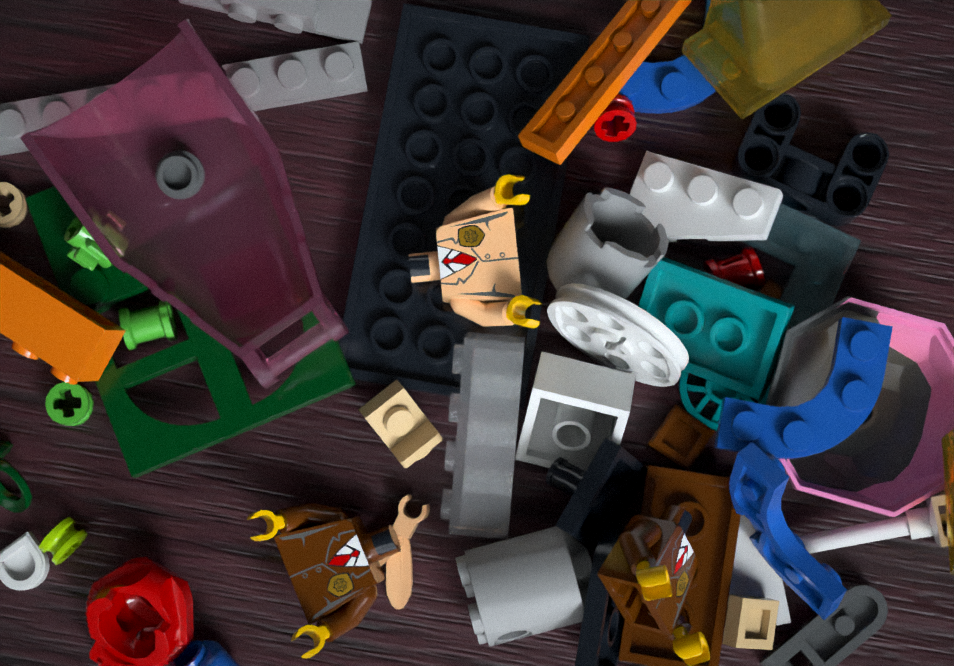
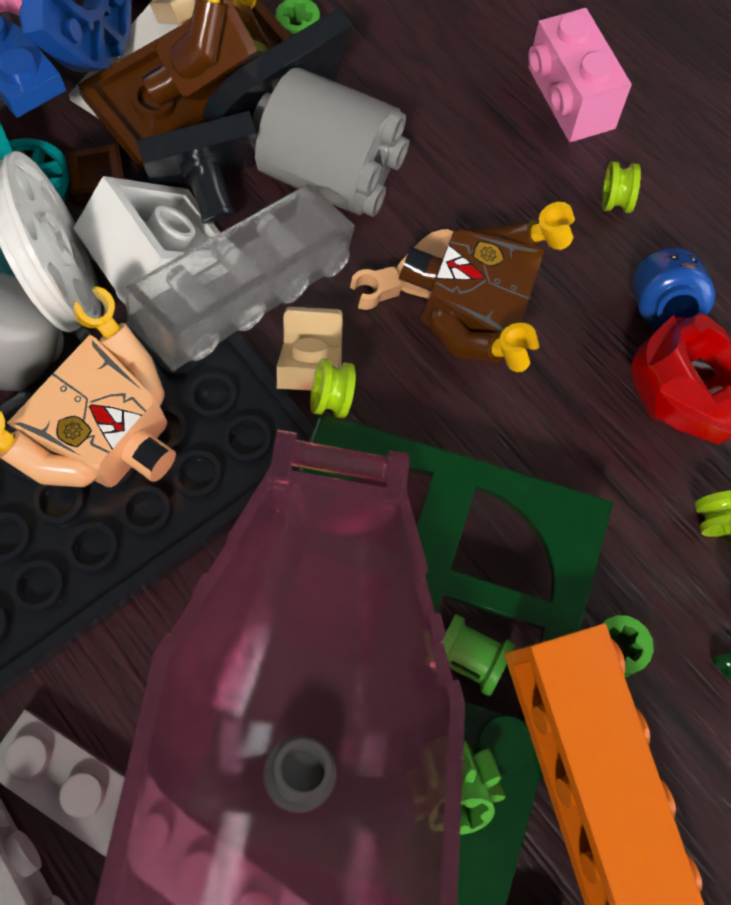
camera: 140 degrees left, 15 degrees down
(352, 399) = (332, 388): none -> lime bush

